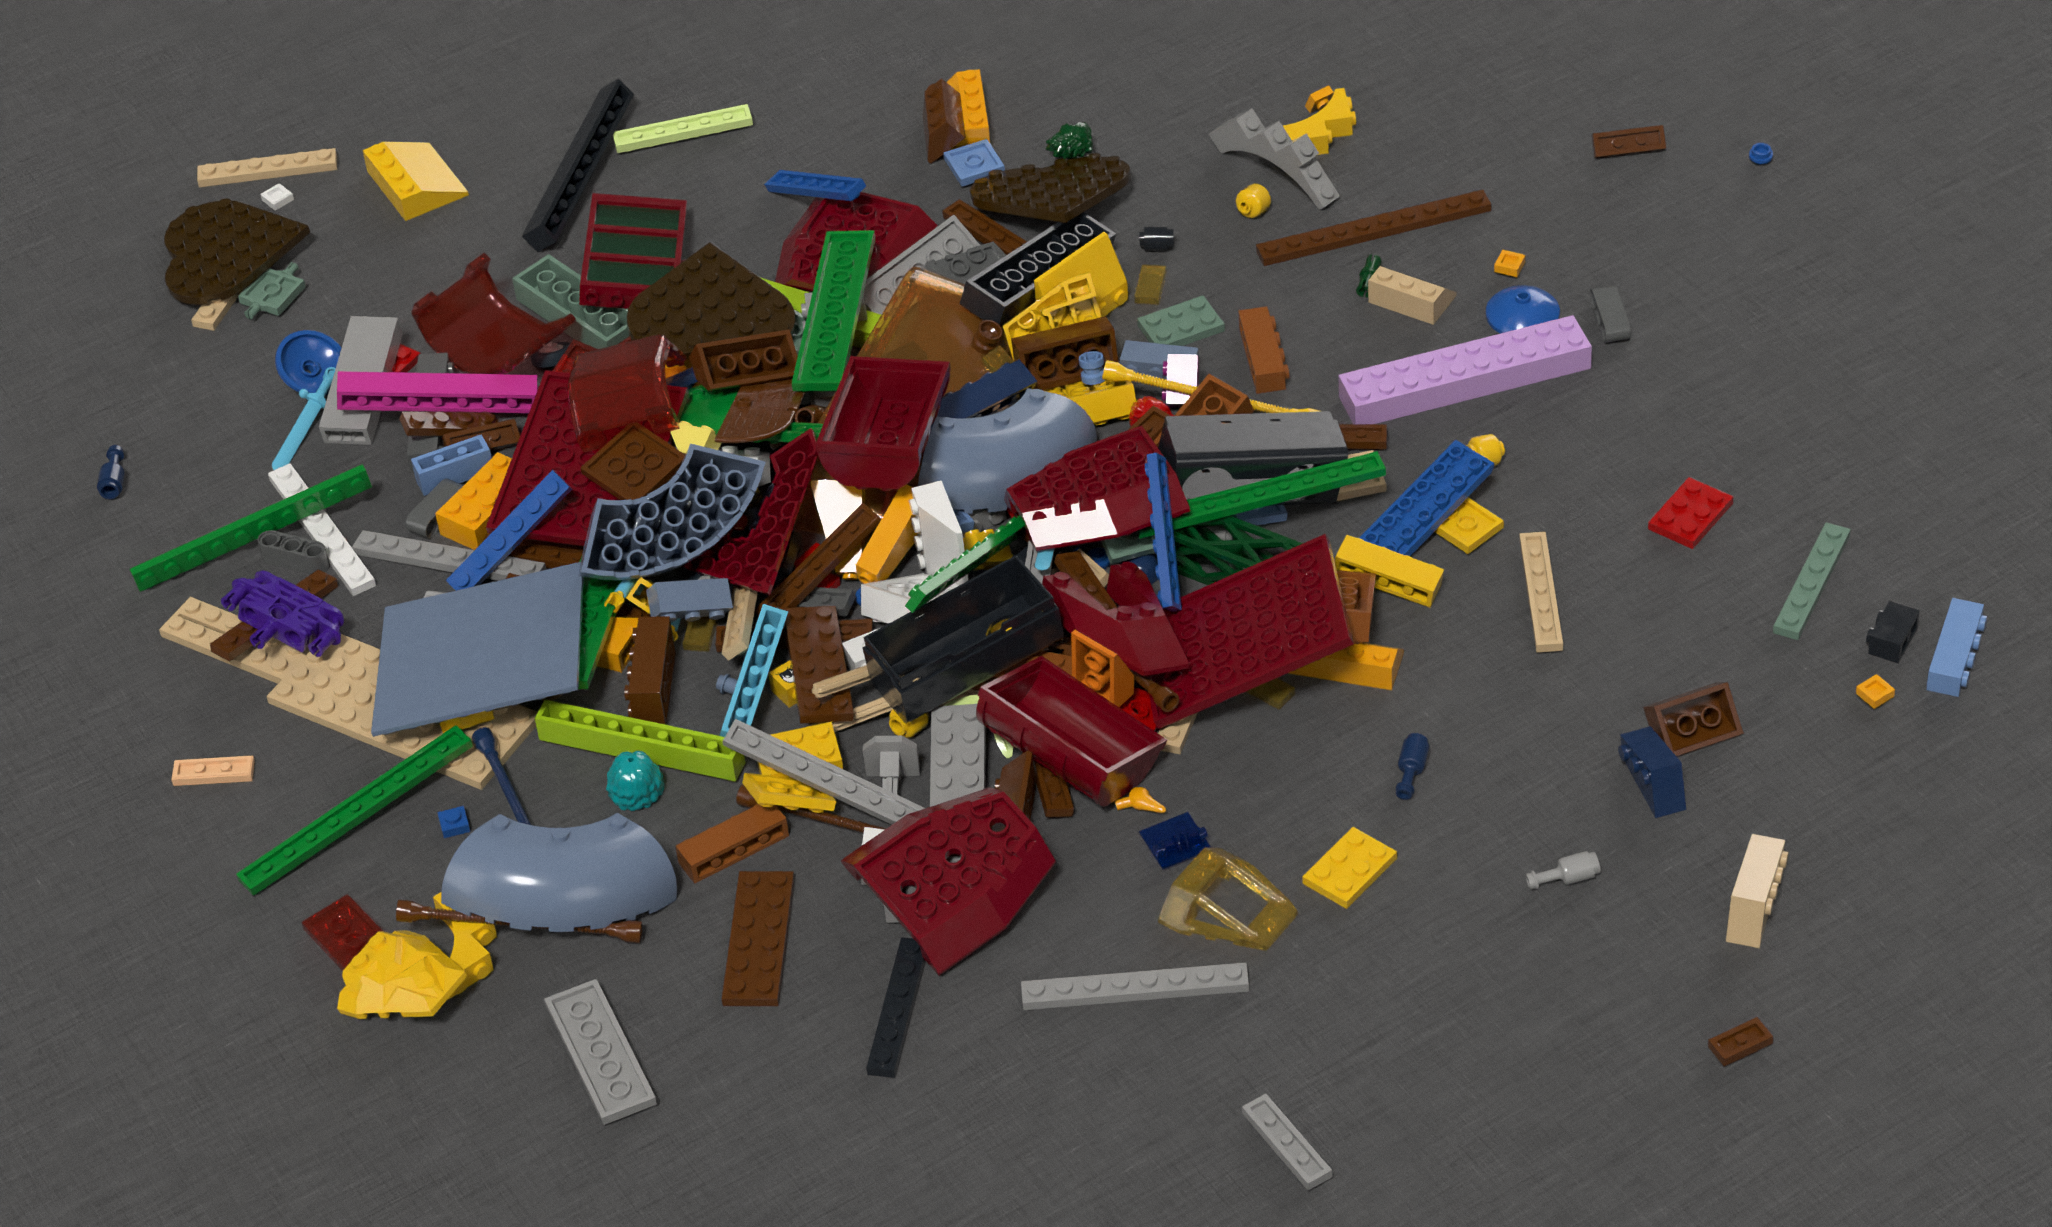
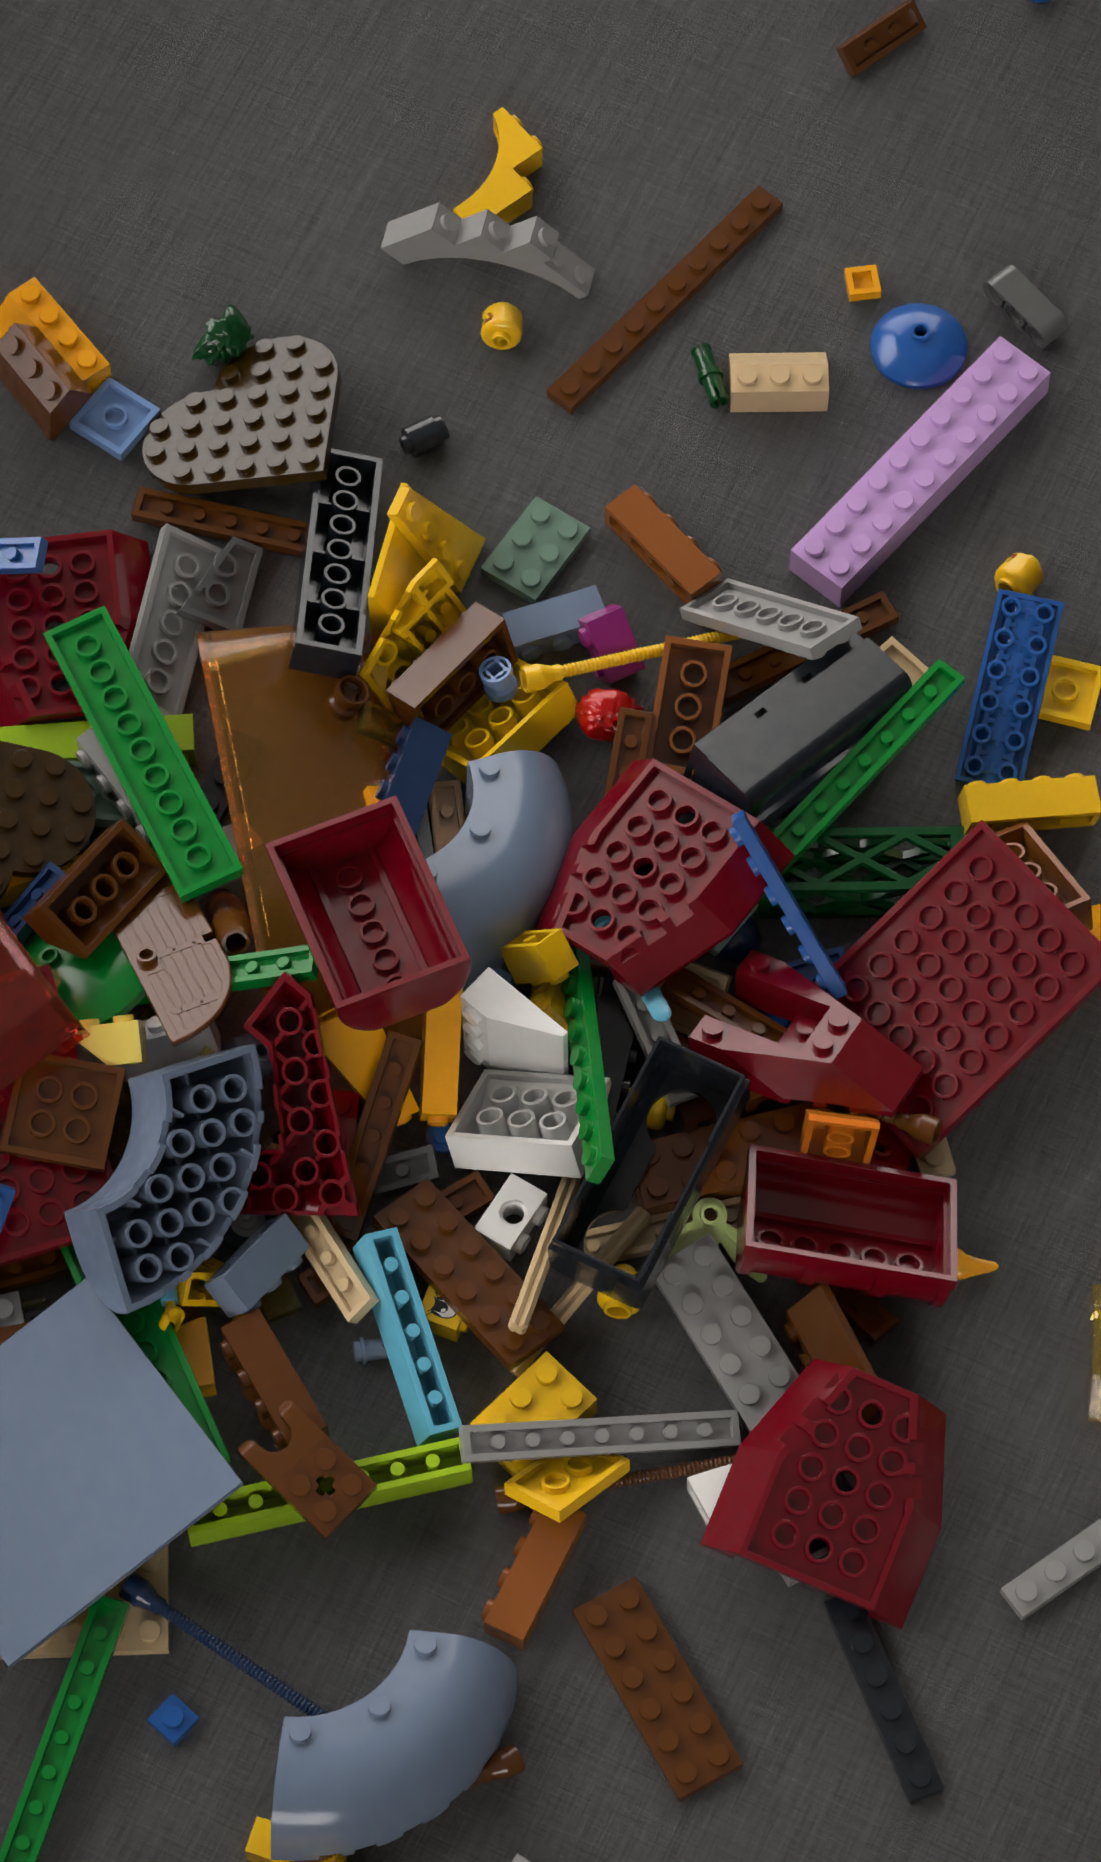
camera: 35 degrees left, 20 degrees up
(628, 711) = (305, 1462): none -> reddish brown brick
(634, 781) = (361, 1563): teal hair -> none
(890, 759) = (649, 1366): light grey piece -> none
(990, 507) = (539, 957): none -> yellow brick
(1115, 284) = (436, 534): none -> yellow wing
(1150, 284) = (456, 499): clear yellow tile -> none
(1175, 840) = (1036, 1300): clear blue hinge -> none
(1288, 396) = (771, 619): none -> light grey plate
(1319, 99) = (477, 133): light orange plate -> none

